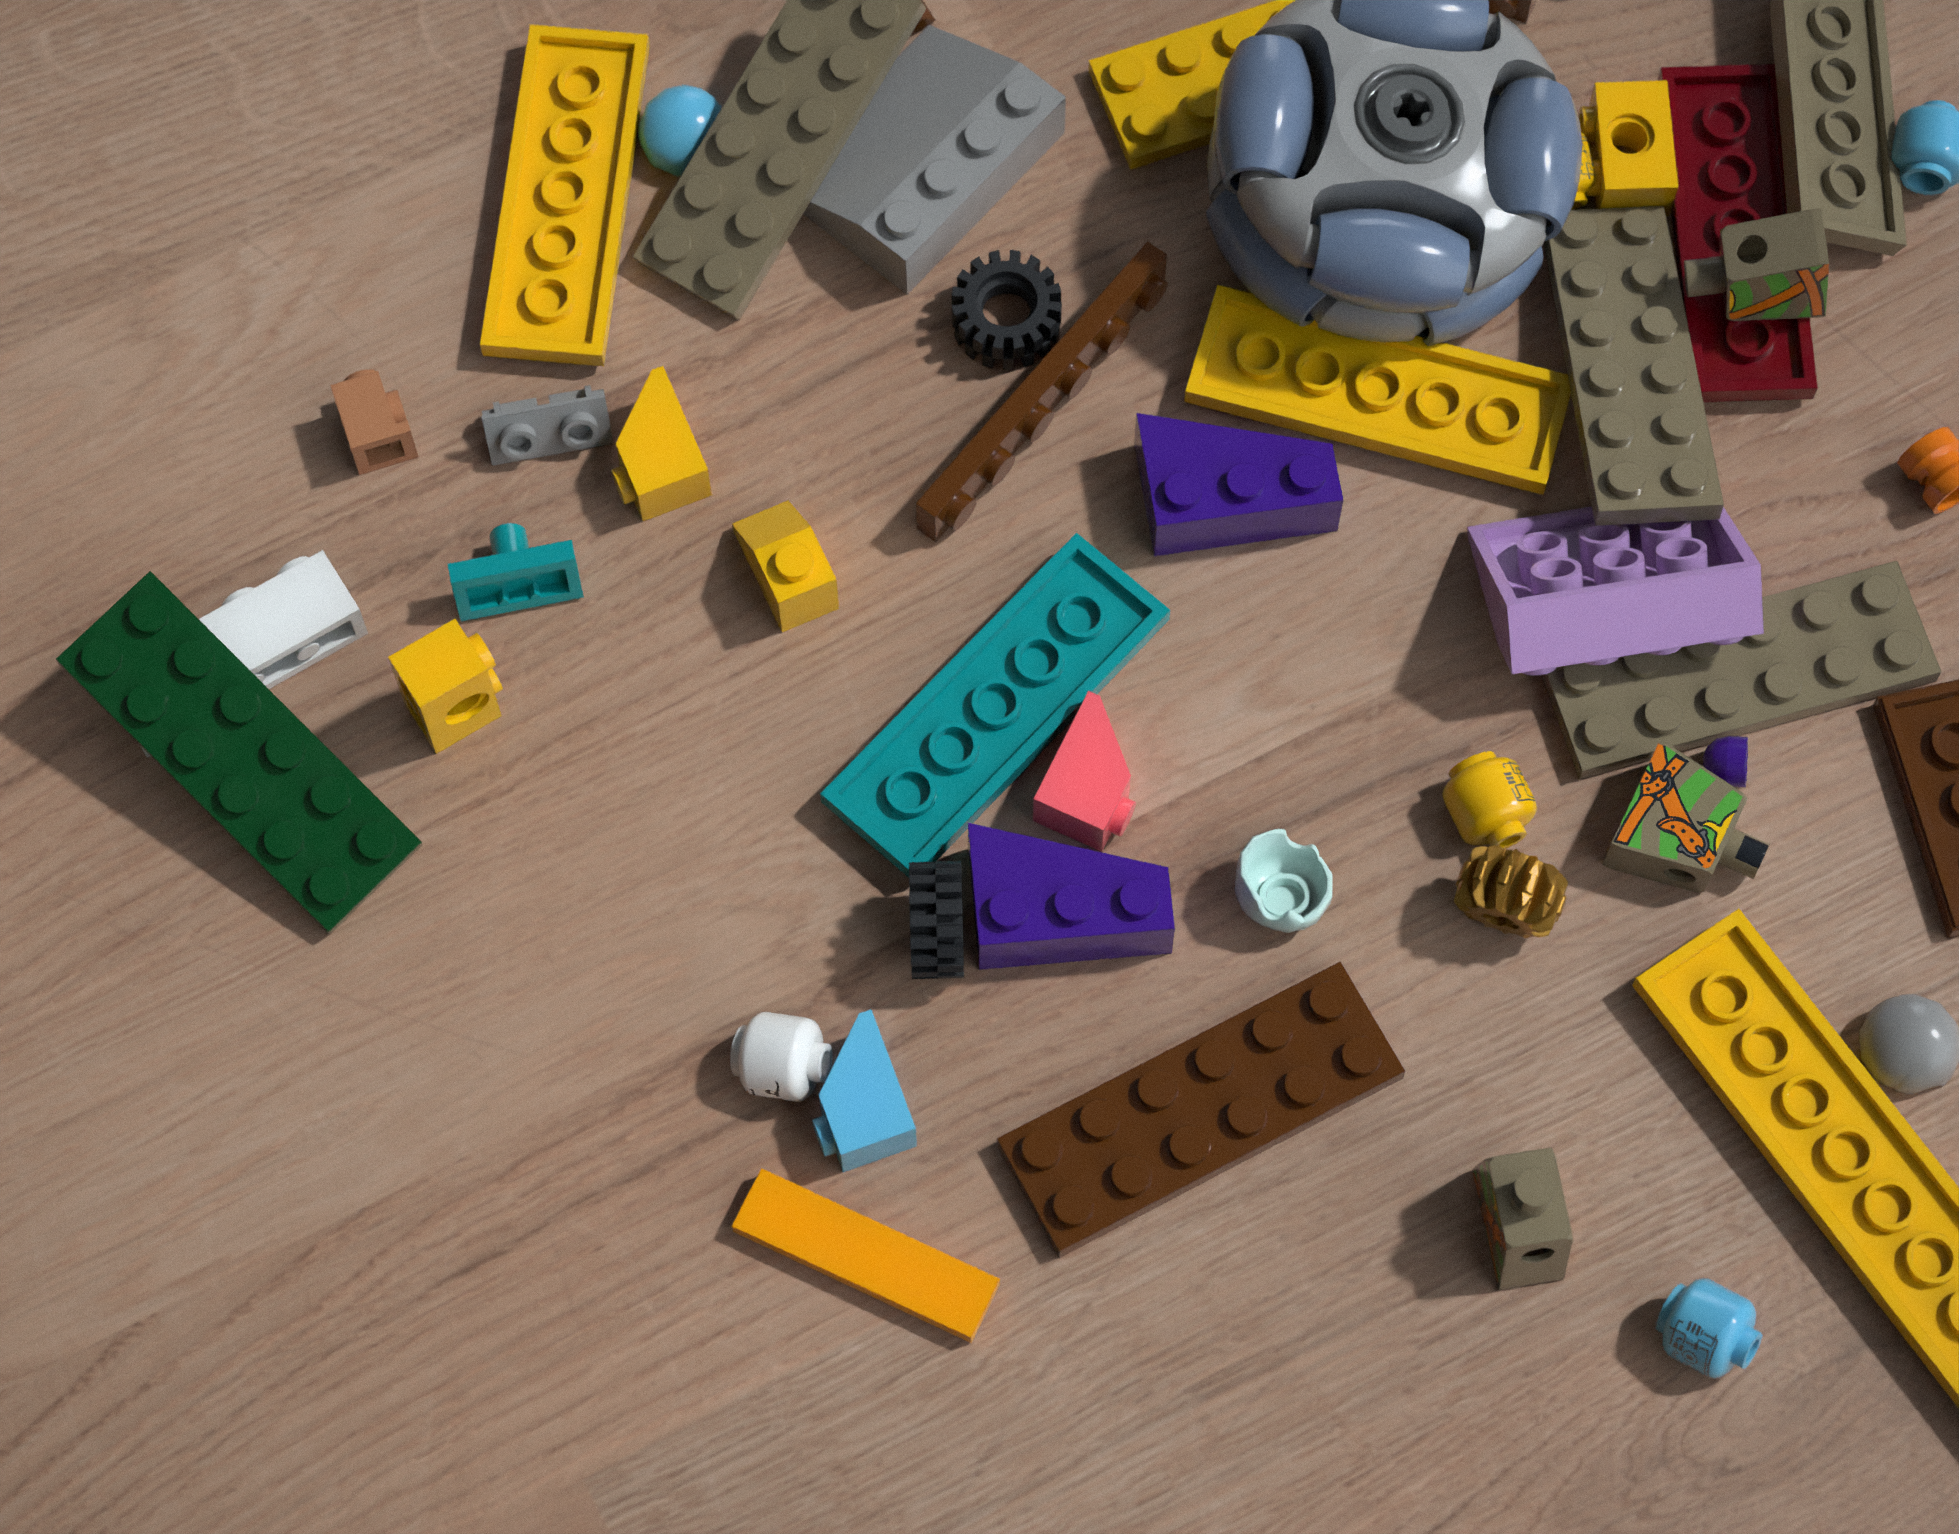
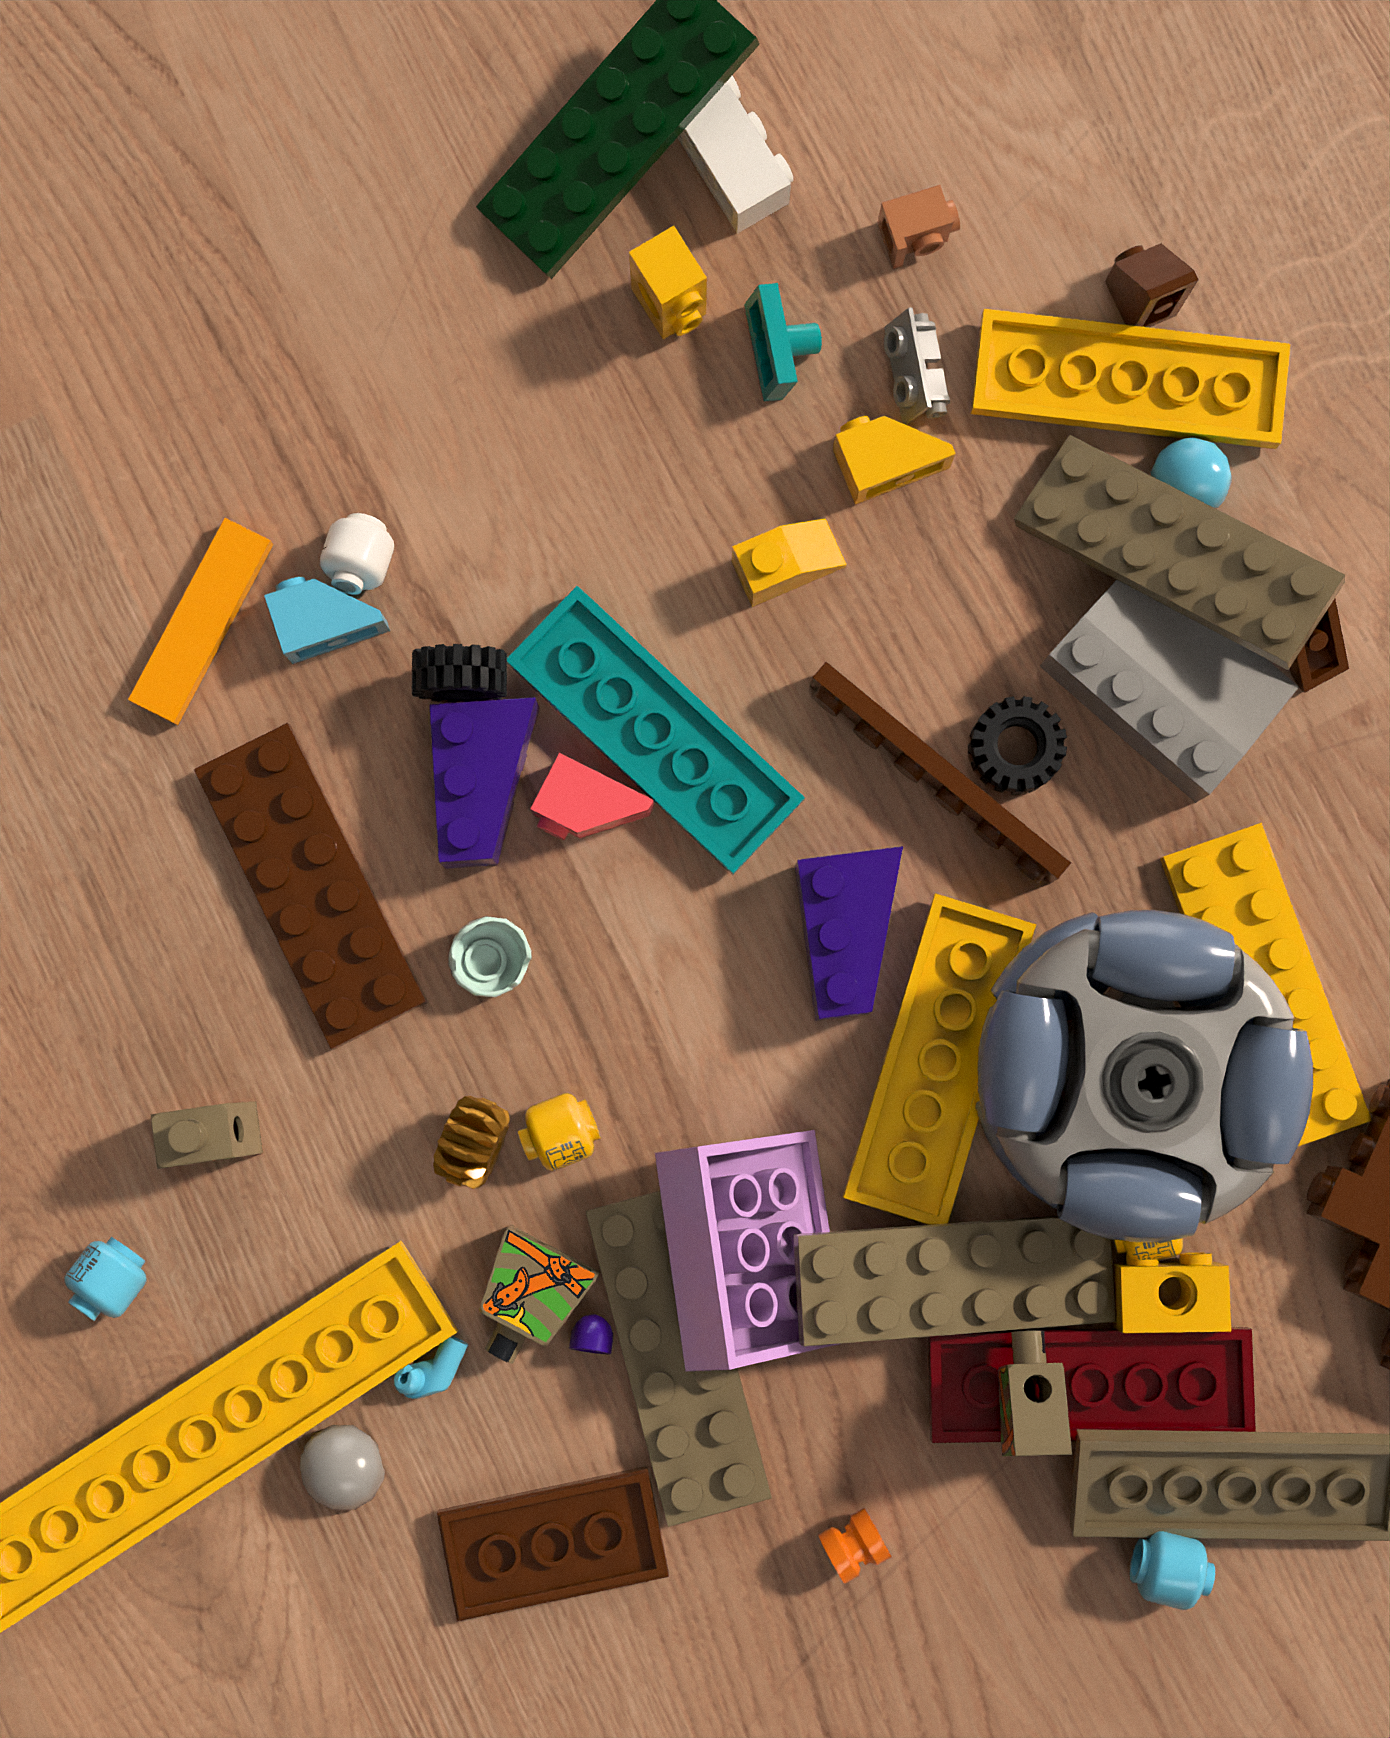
camera: 90 degrees right, 15 degrees up
(457, 165) = (1149, 284): none -> reddish brown slope
(1788, 940) = (434, 1374): none -> medium azure arm

